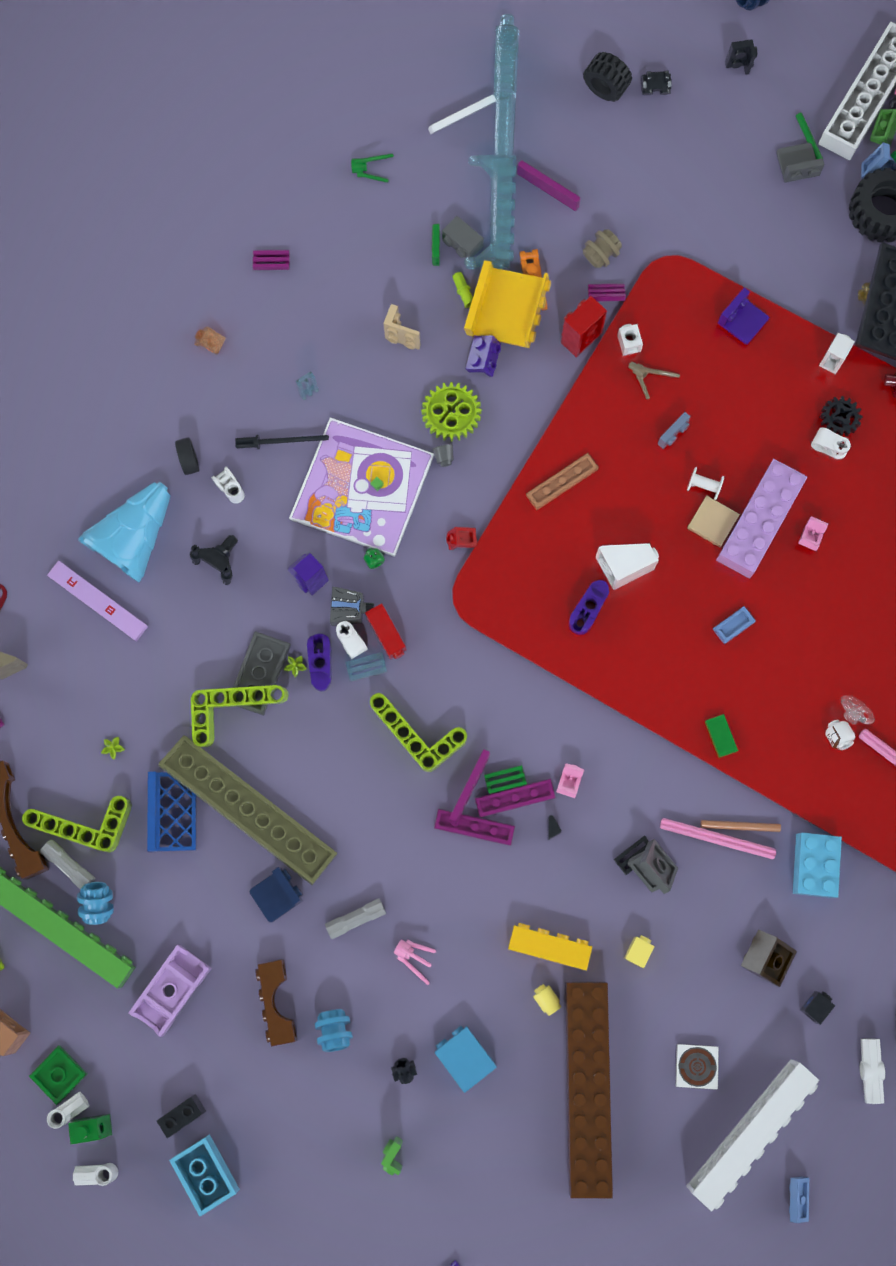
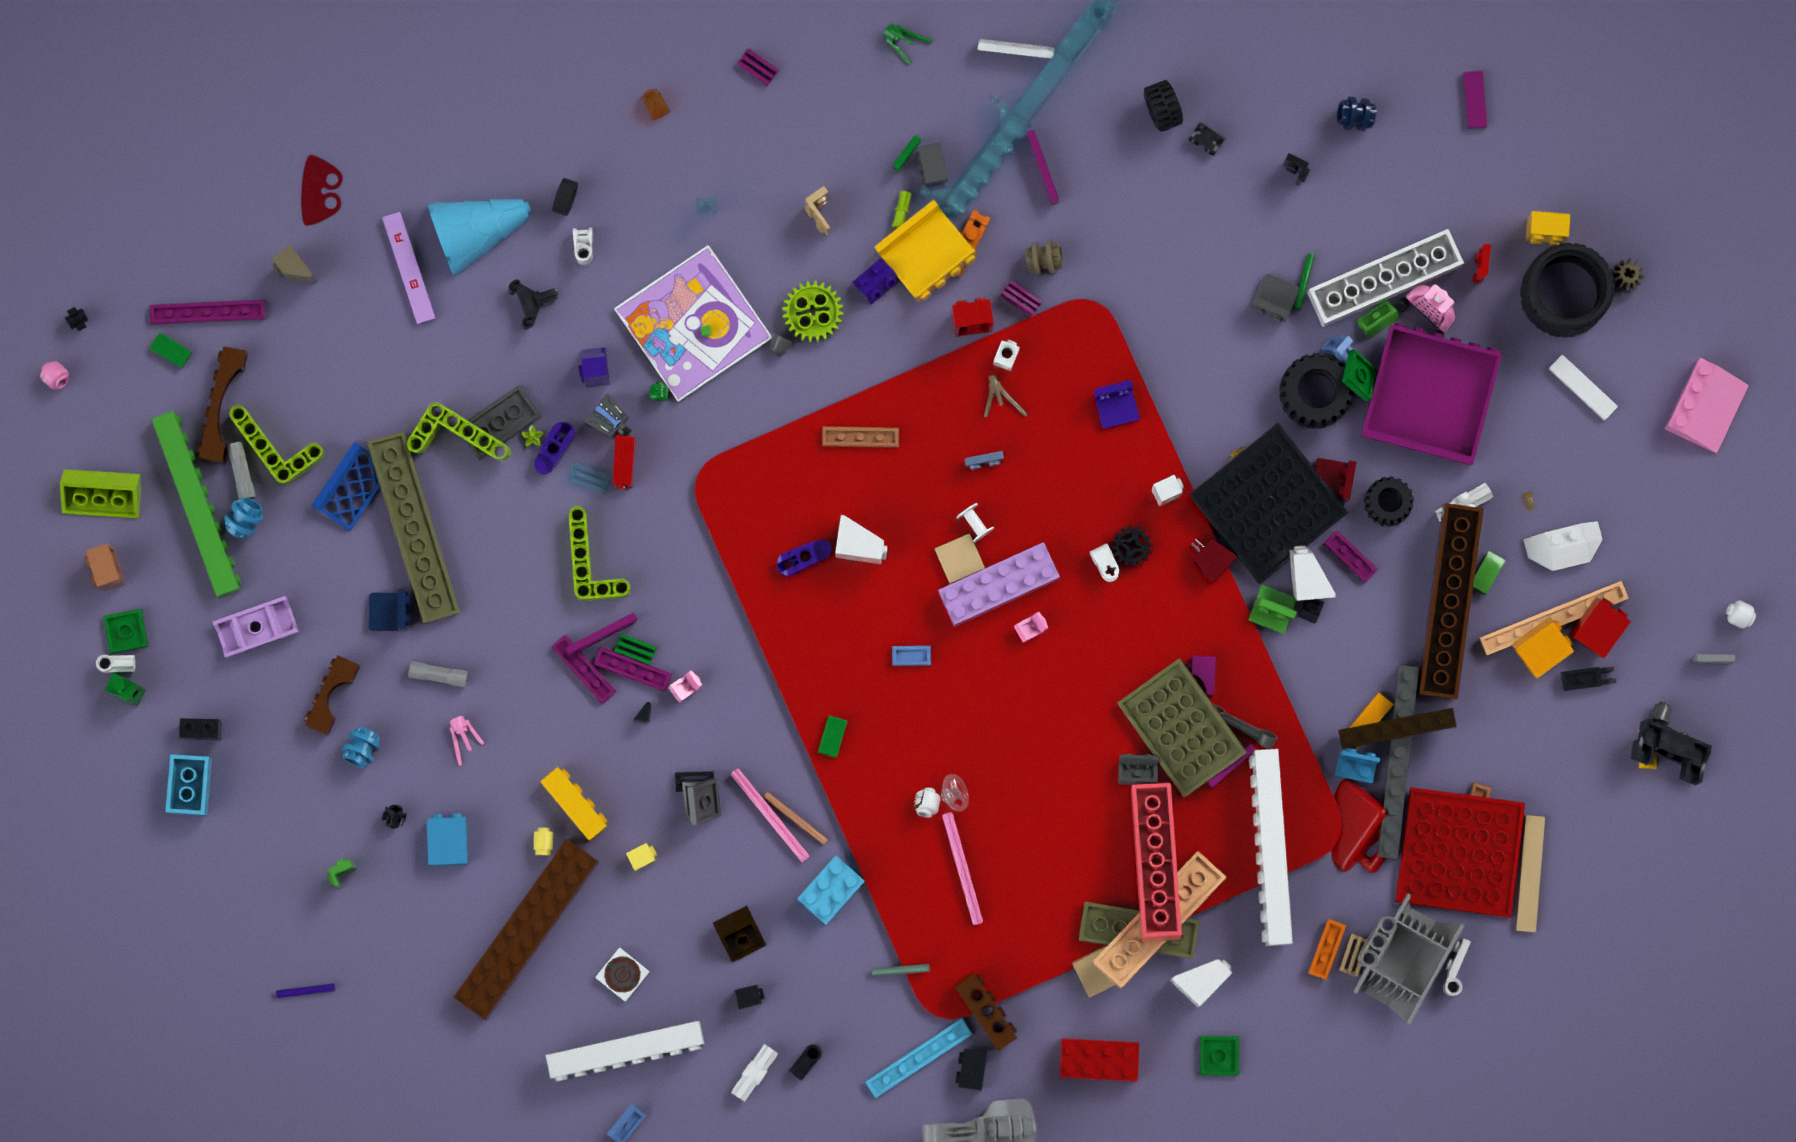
camera: 30 degrees right, 5 degrees up
(94, 1174) = (104, 726): white piece -> none
(112, 747) = (339, 400): lime plant -> none
(255, 442) = (631, 223): black piece -> none
(352, 642) = (591, 450): white piece -> none
(461, 537) = (743, 426): red bracket -> none

